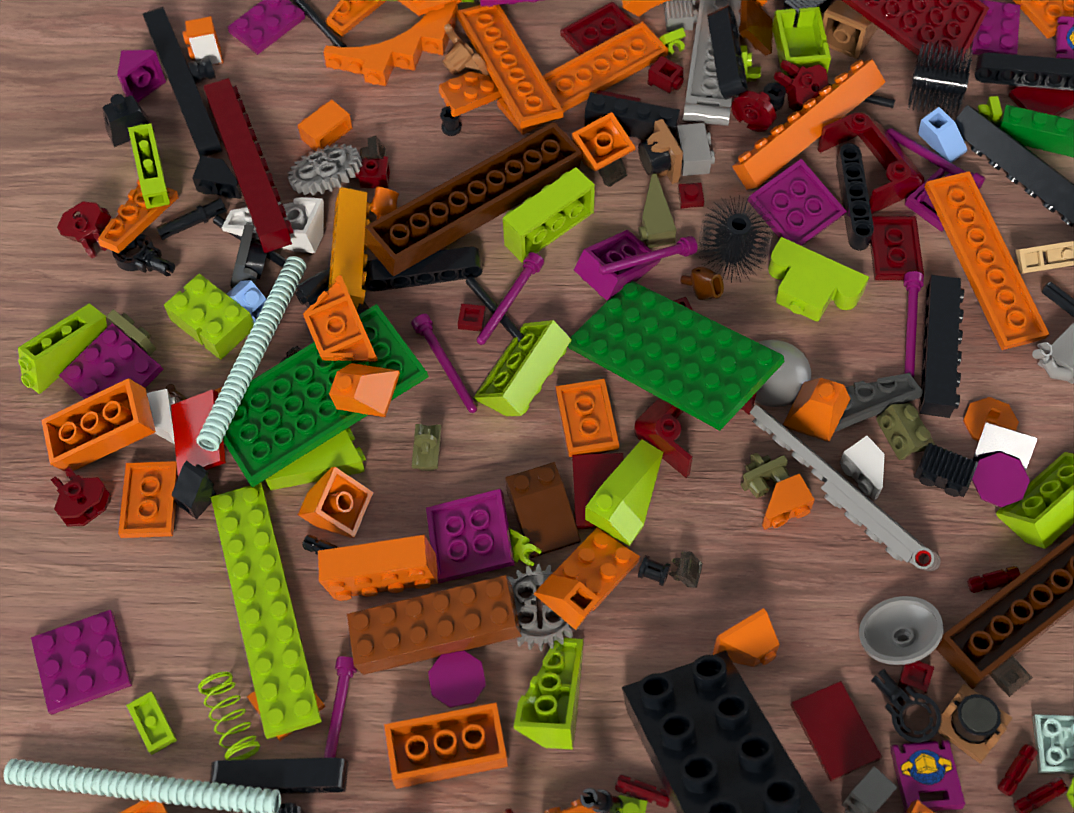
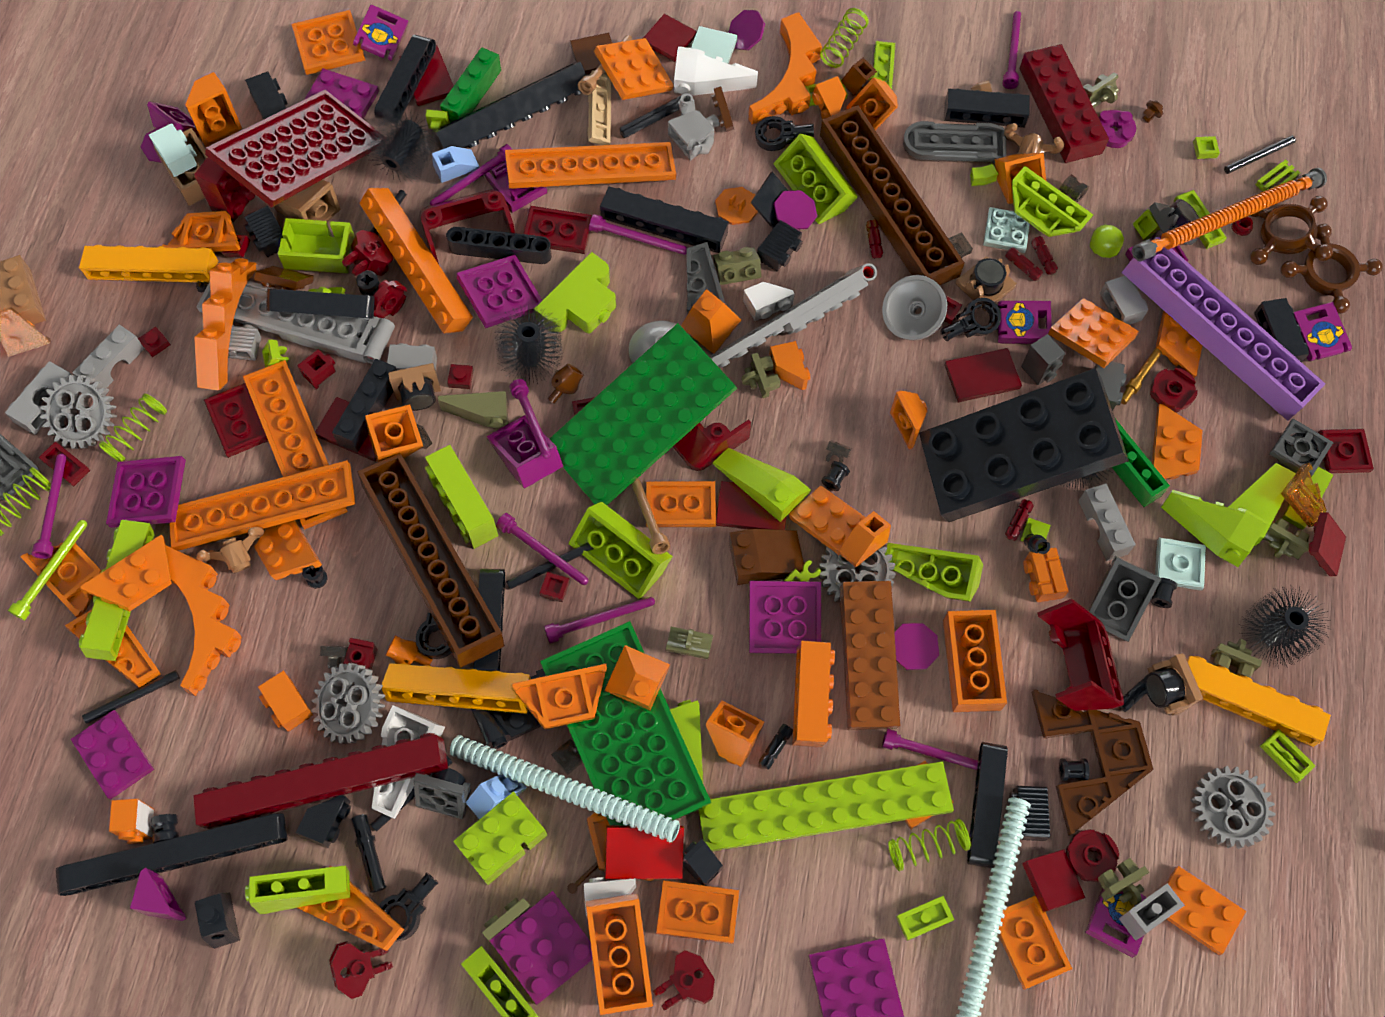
camera: 85 degrees left, 5 degrees up
(528, 392) = (658, 541): none -> medium nougat piece

